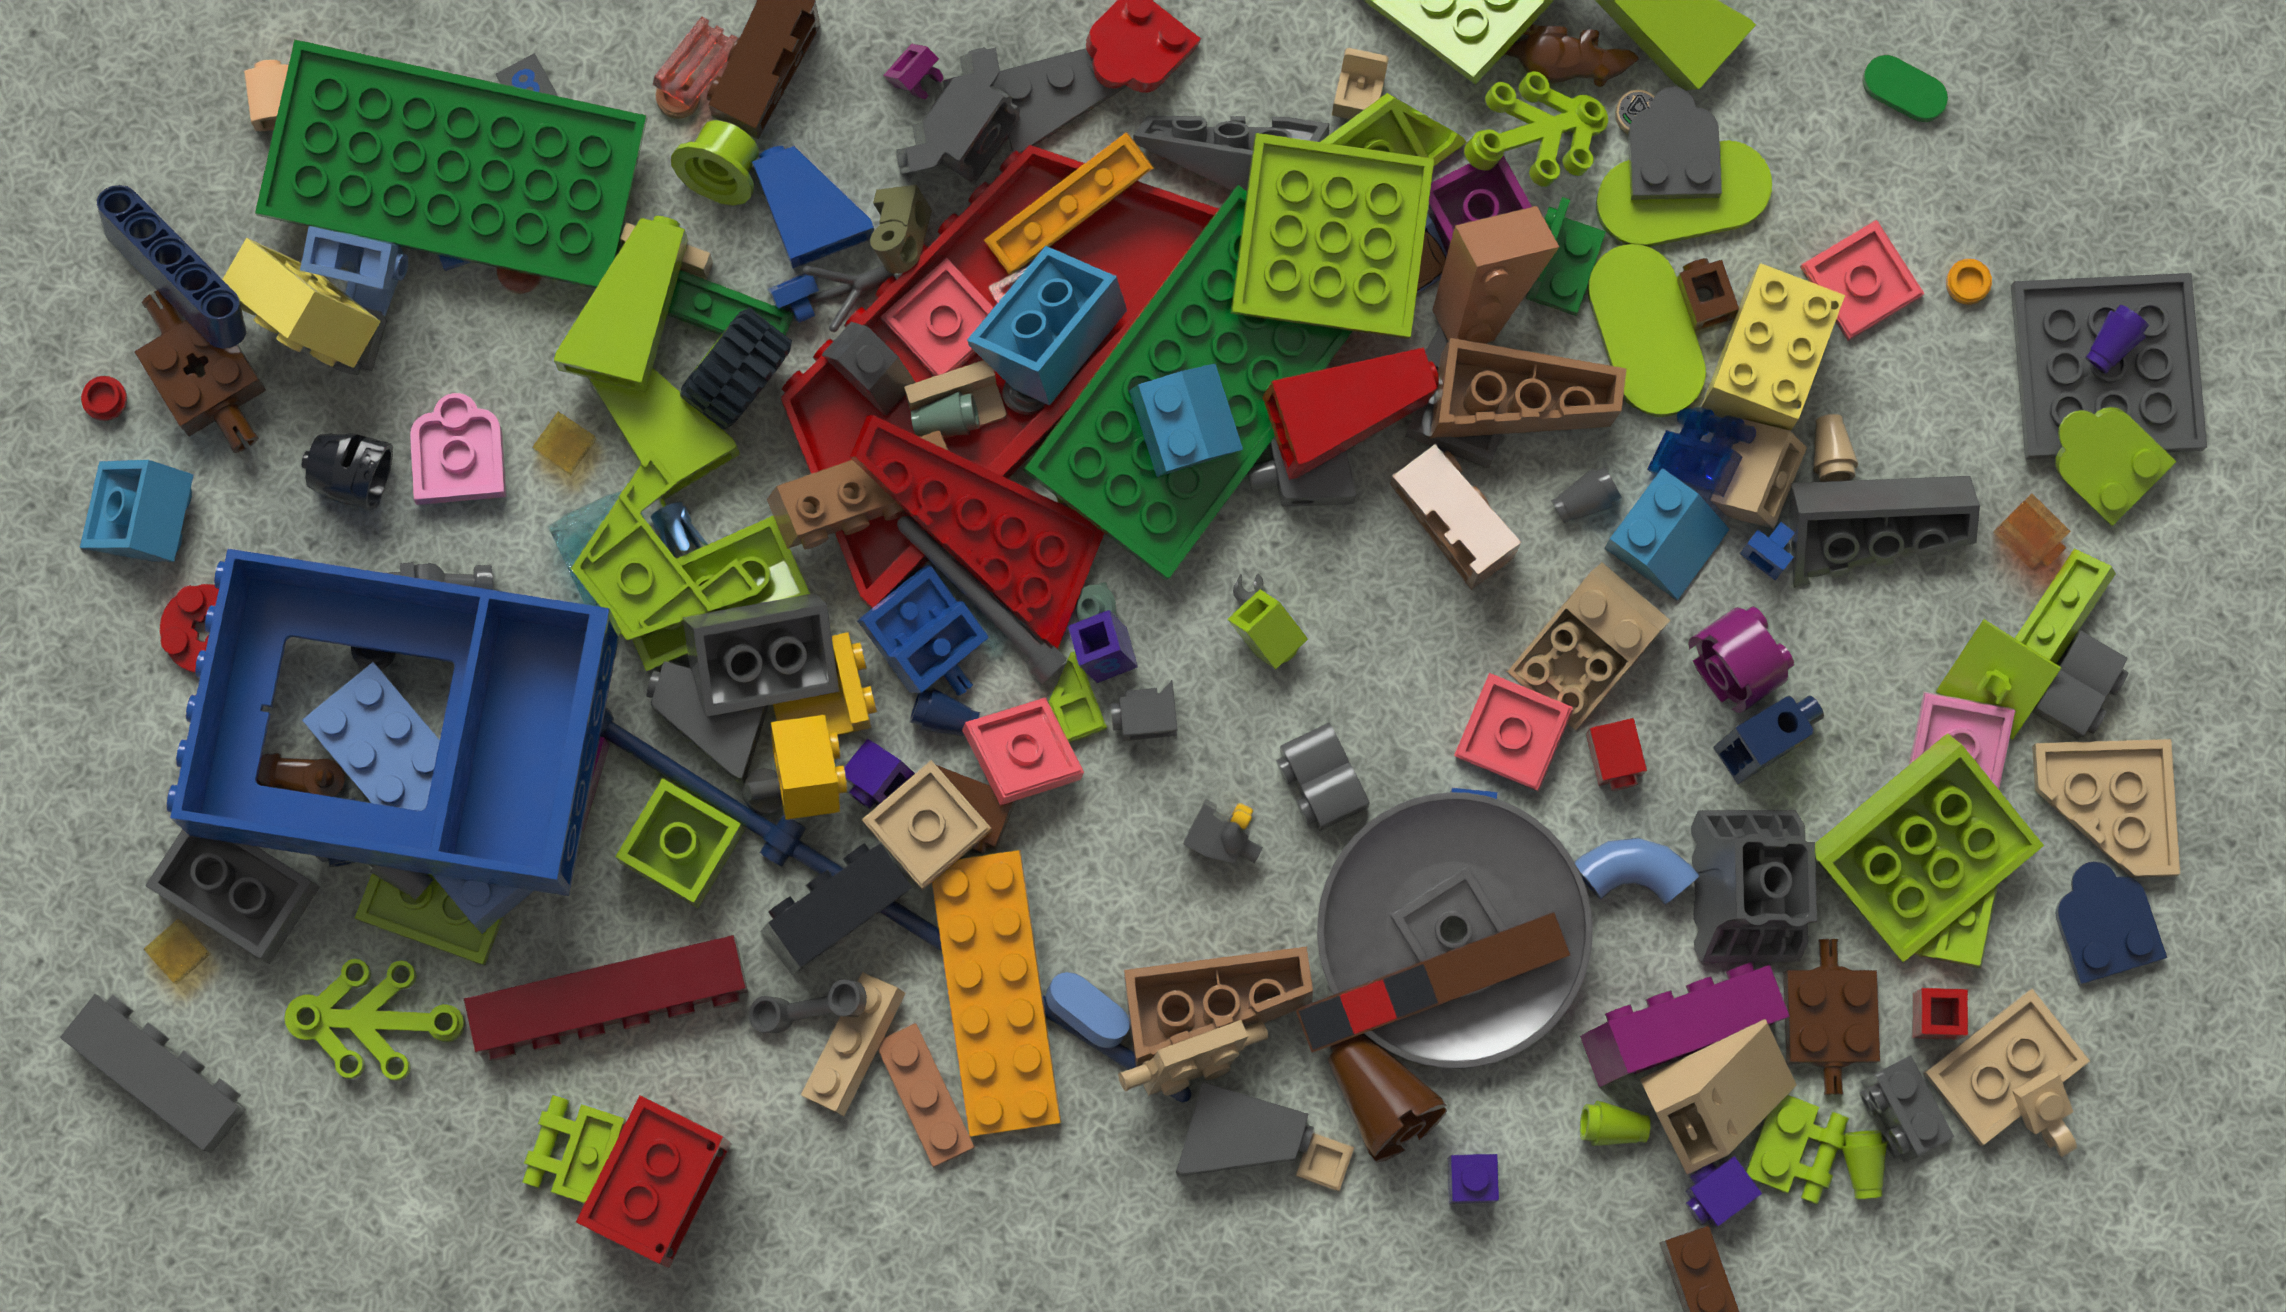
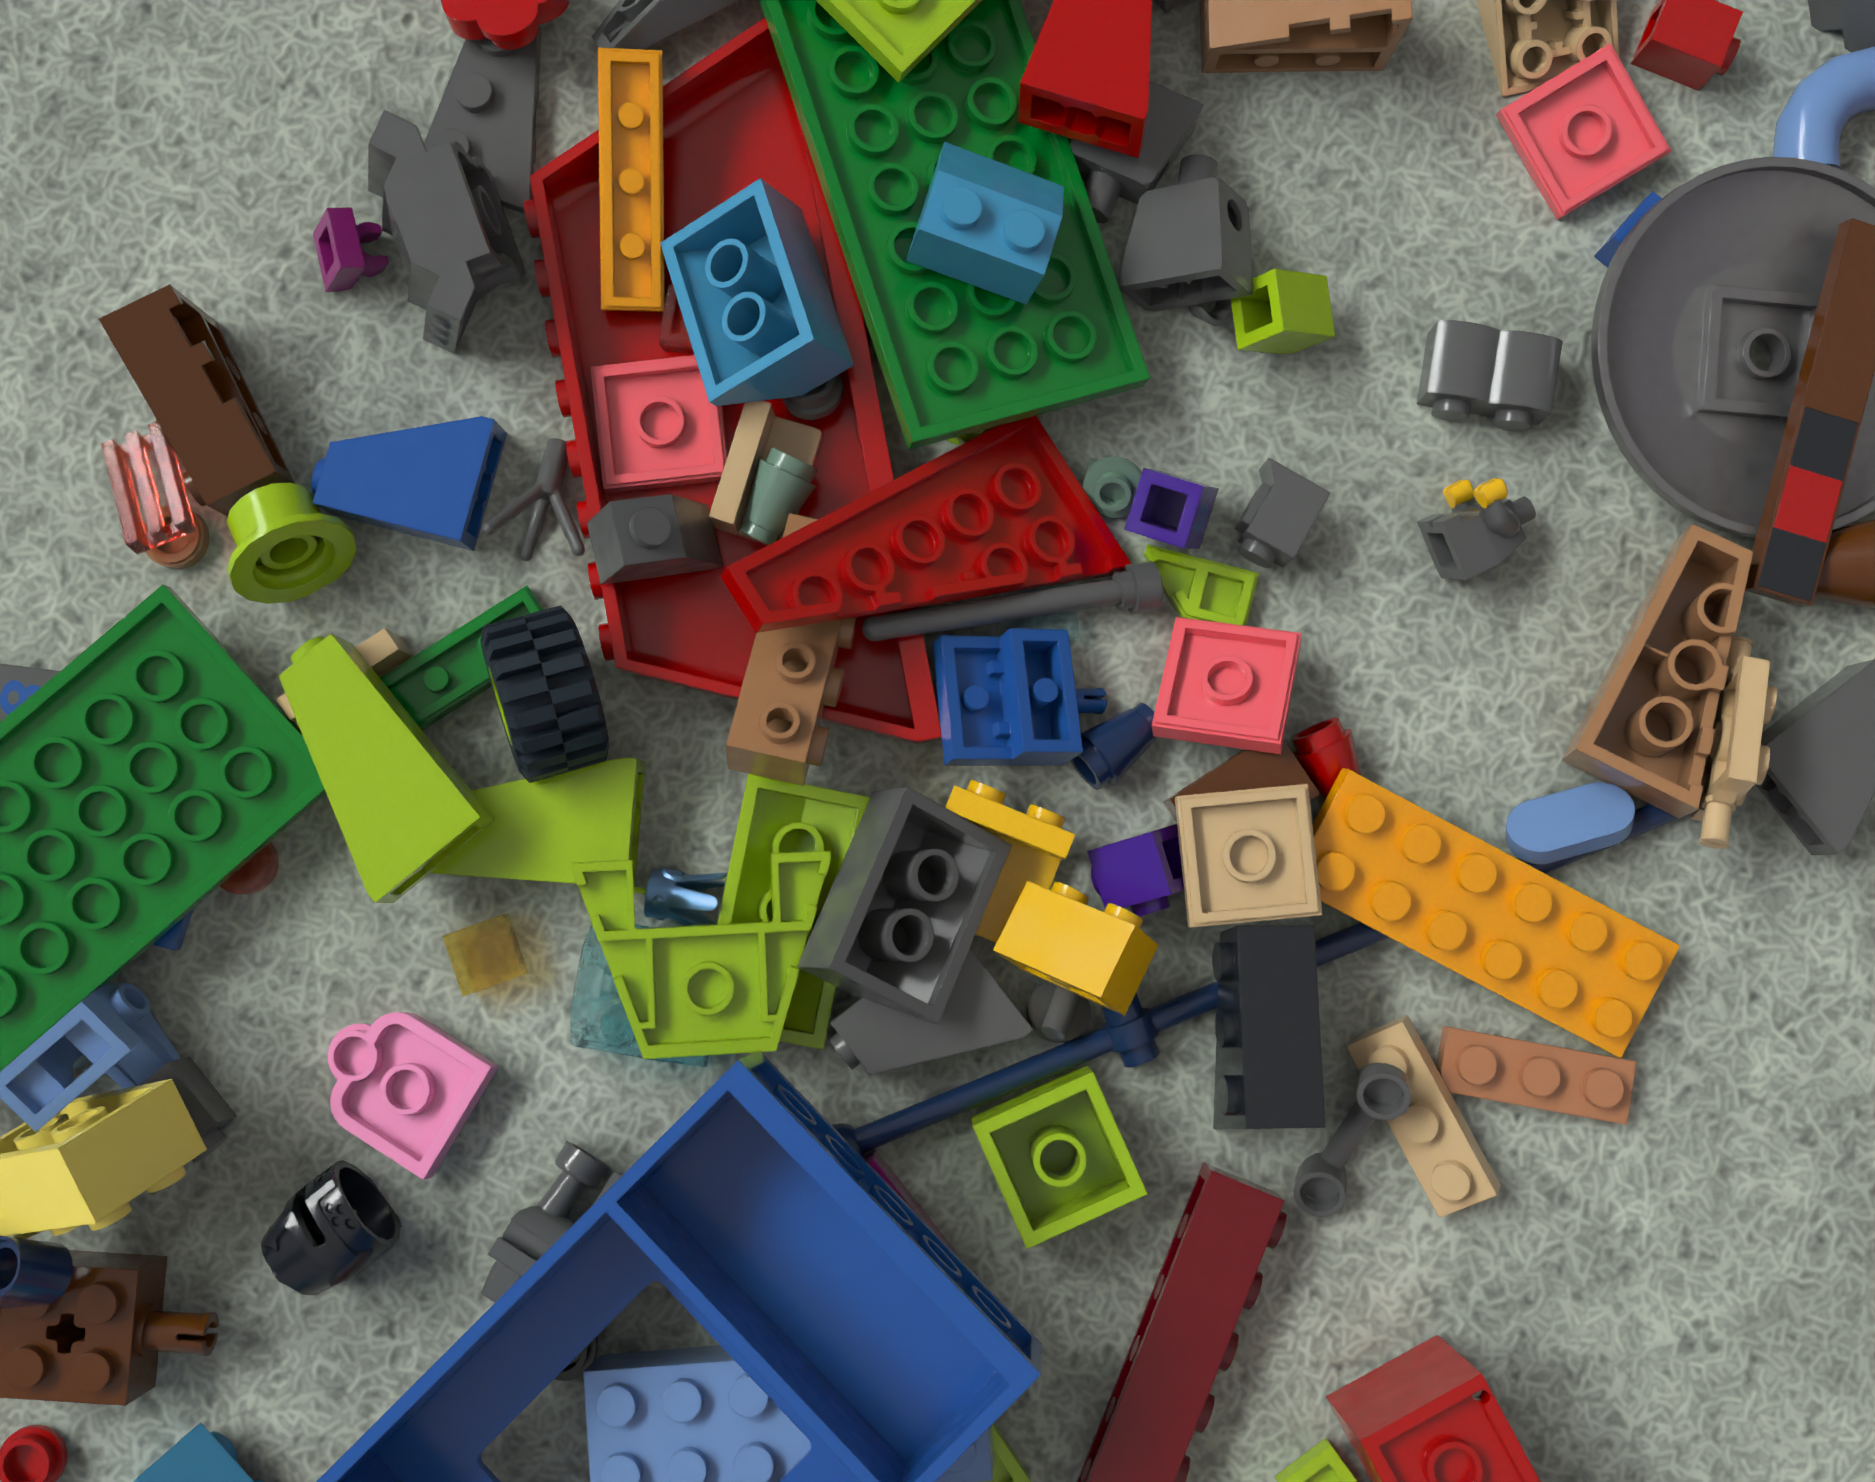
camera: 55 degrees left, 5 degrees up
(795, 294) = (505, 567): blue tile -> none
(901, 227) = (517, 386): olive leg -> none
(1029, 838) = (1324, 752): none -> red cone
(1269, 544) = (1188, 242): none -> dark grey torso

